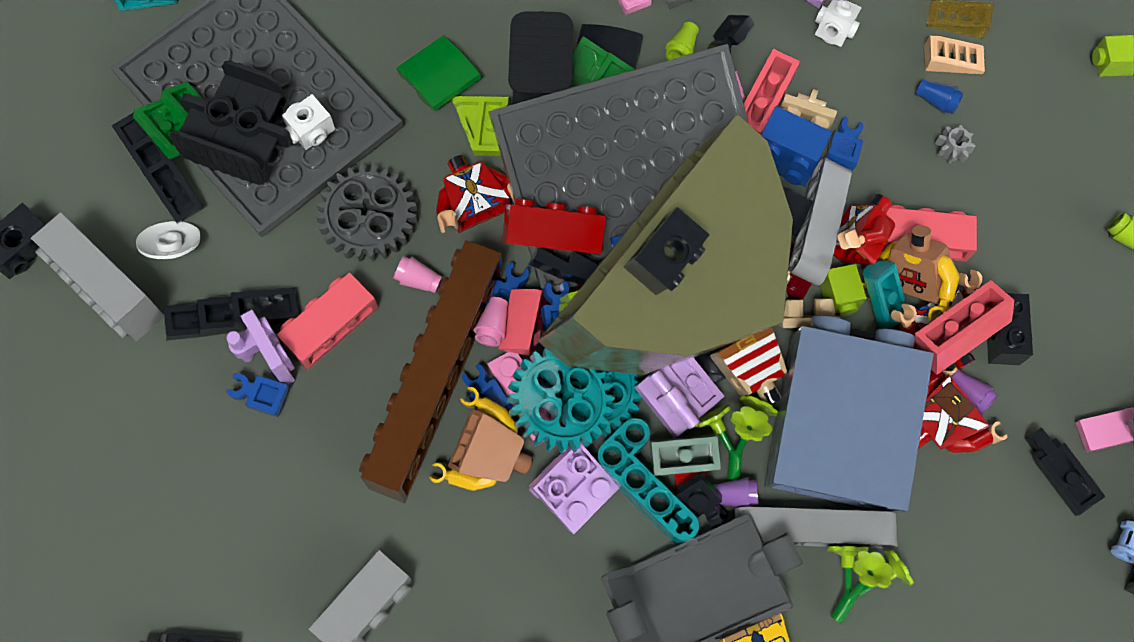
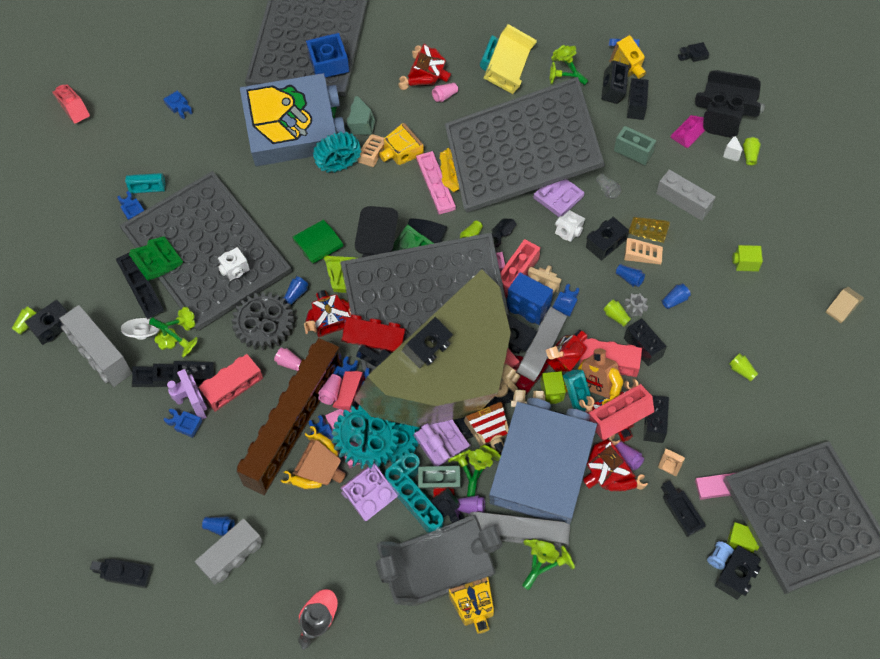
camera: 10 degrees right, 10 degrees down
(124, 35) = (129, 206): none -> blue plate
(213, 250) = (167, 338): none -> lime plant
(225, 142) = (183, 272): black piece -> none
(339, 561) = (218, 525): none -> blue cone
(413, 157) = (295, 290): none -> blue cone
(890, 51) = (601, 246): none -> black brick
(926, 158) = (616, 312): none -> lime cone
(977, 198) = (644, 337): none -> black brick
(1015, 125) = (676, 296): none -> blue cone
(1042, 399) = (671, 462): none -> light nougat slope

